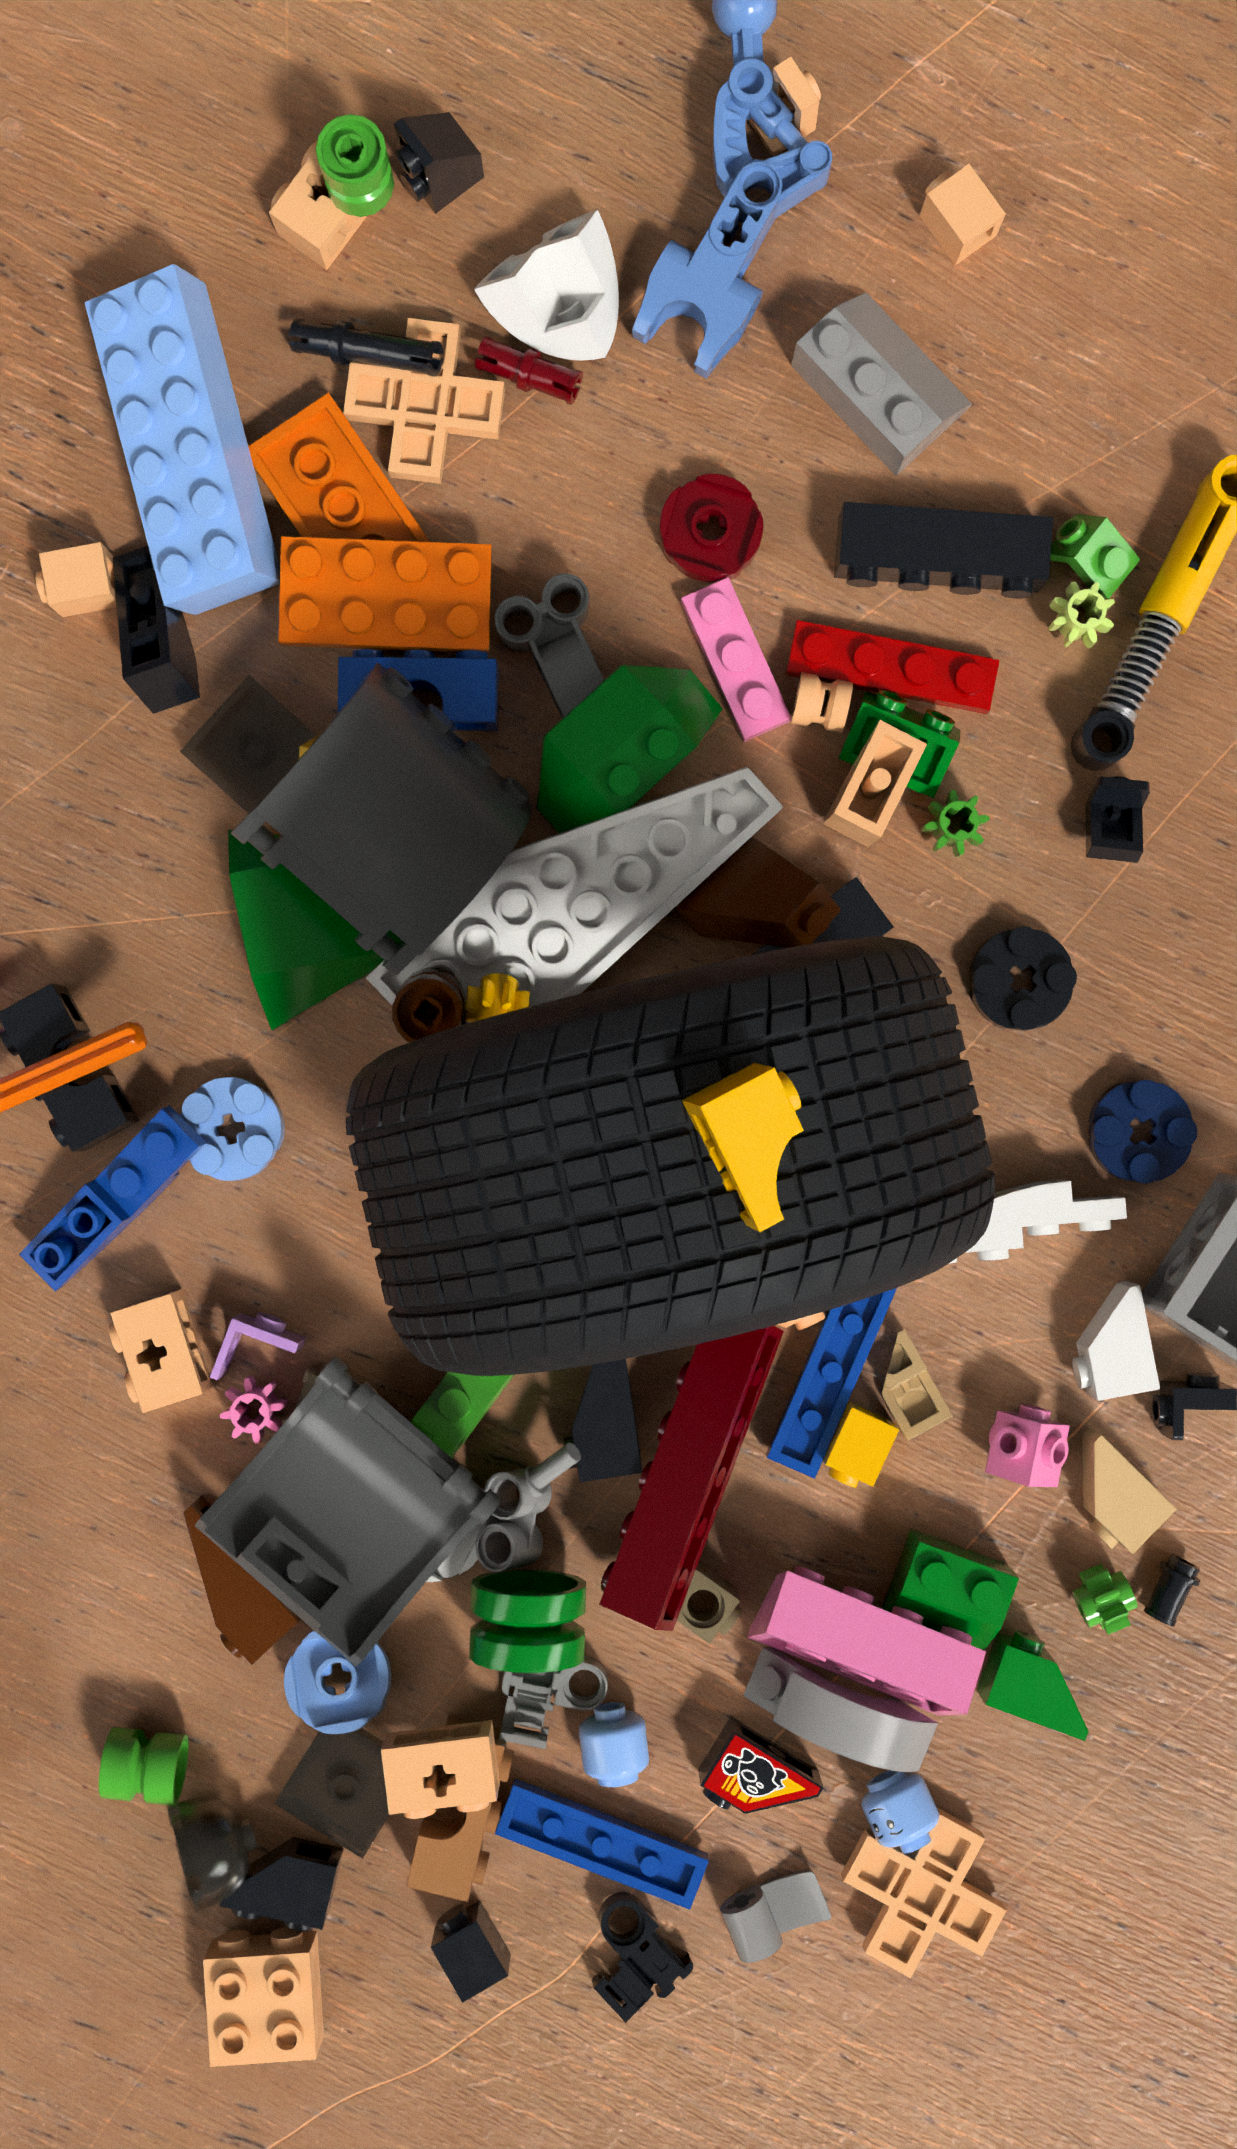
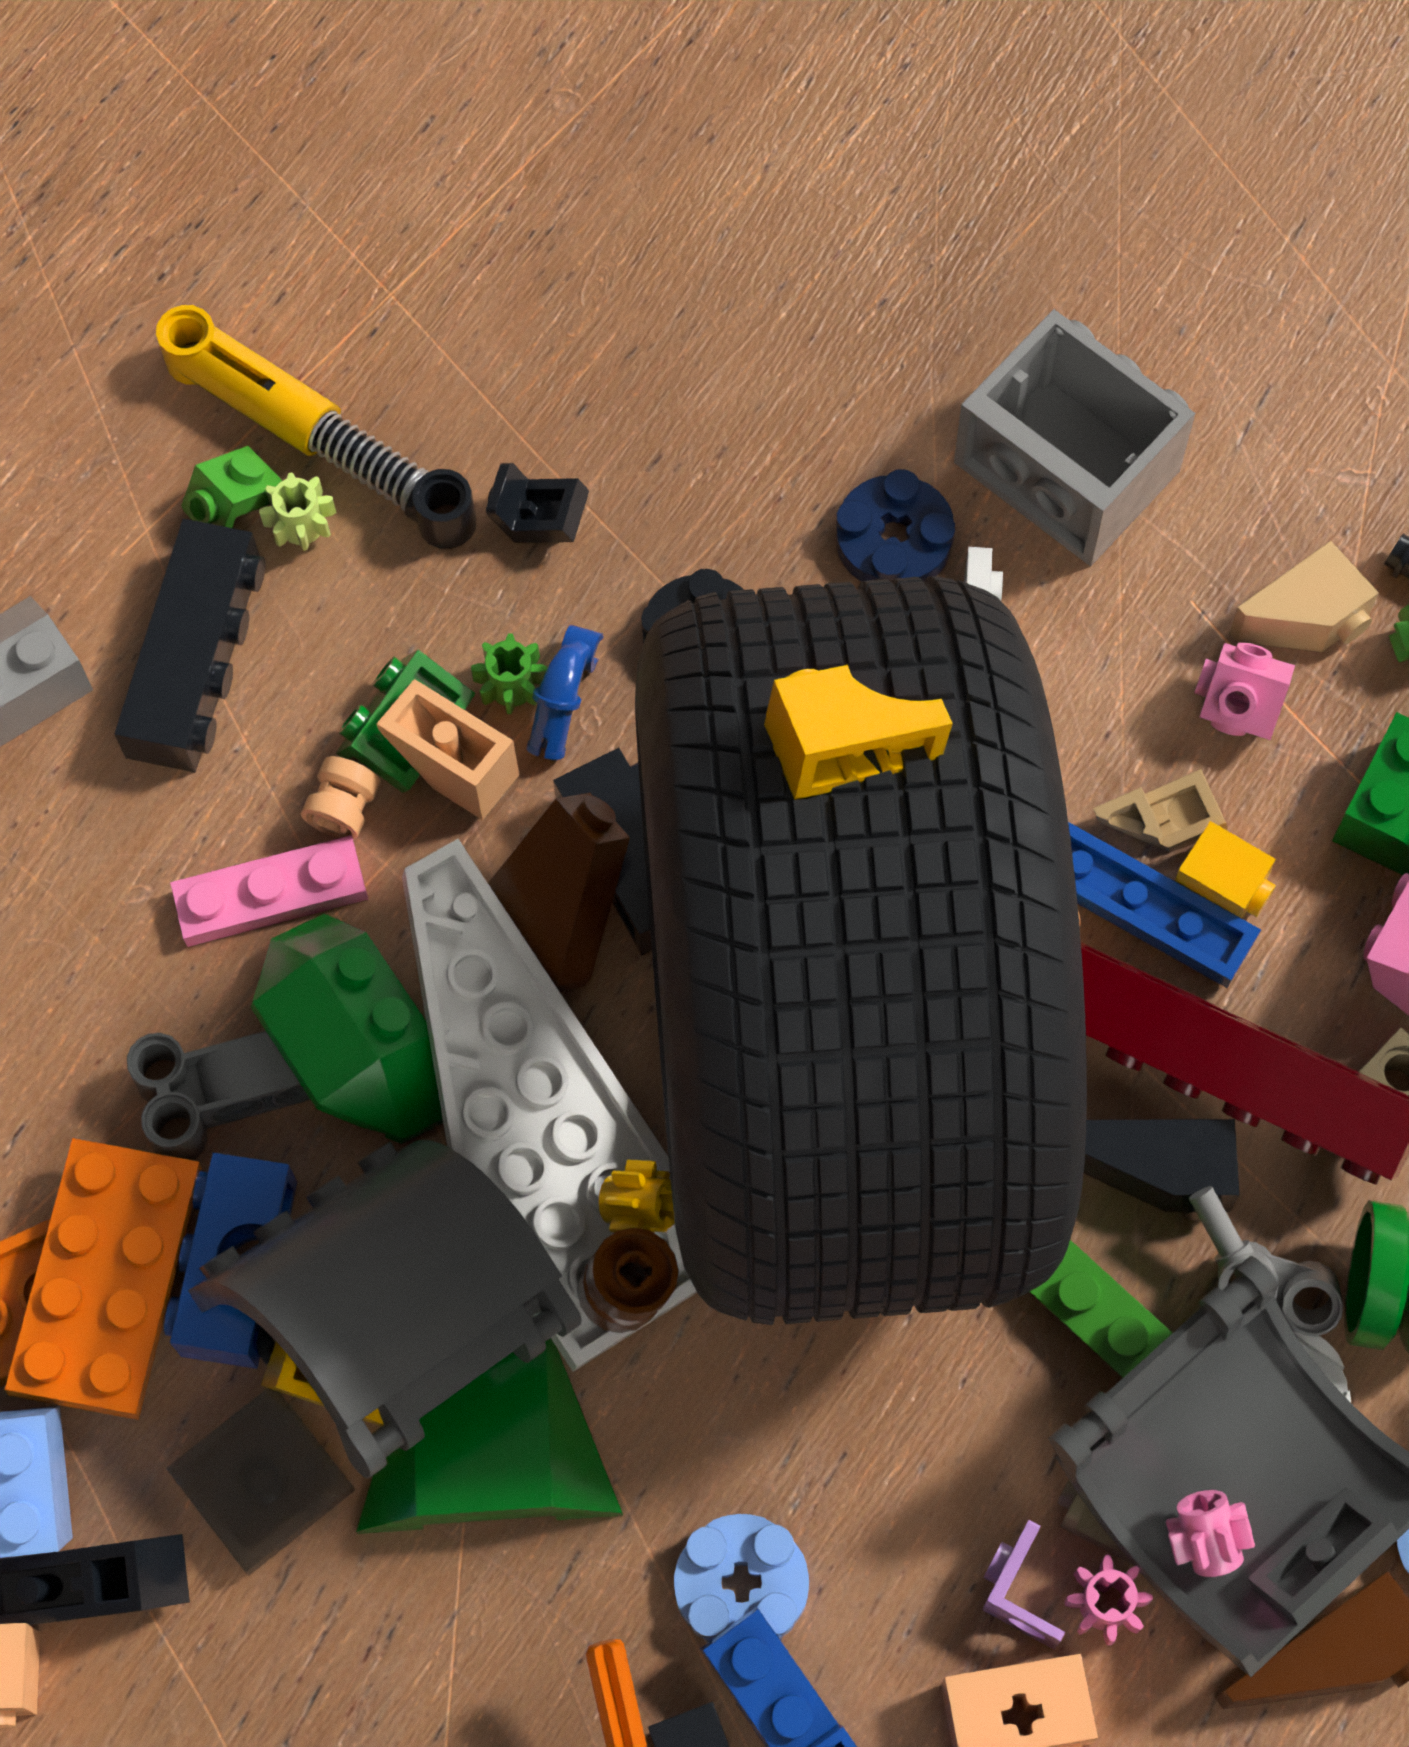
camera: 80 degrees left, 20 degrees down
(301, 1484) = (1210, 1533): none -> bright pink gear
(695, 503) = (120, 926): dark red plate -> none
(894, 666) = (311, 720): red plate -> none
(937, 868) = (559, 691): none -> blue piece
(1117, 1348) = (1138, 584): white slope -> none
(1199, 1392) = (1206, 535): black bracket -> none

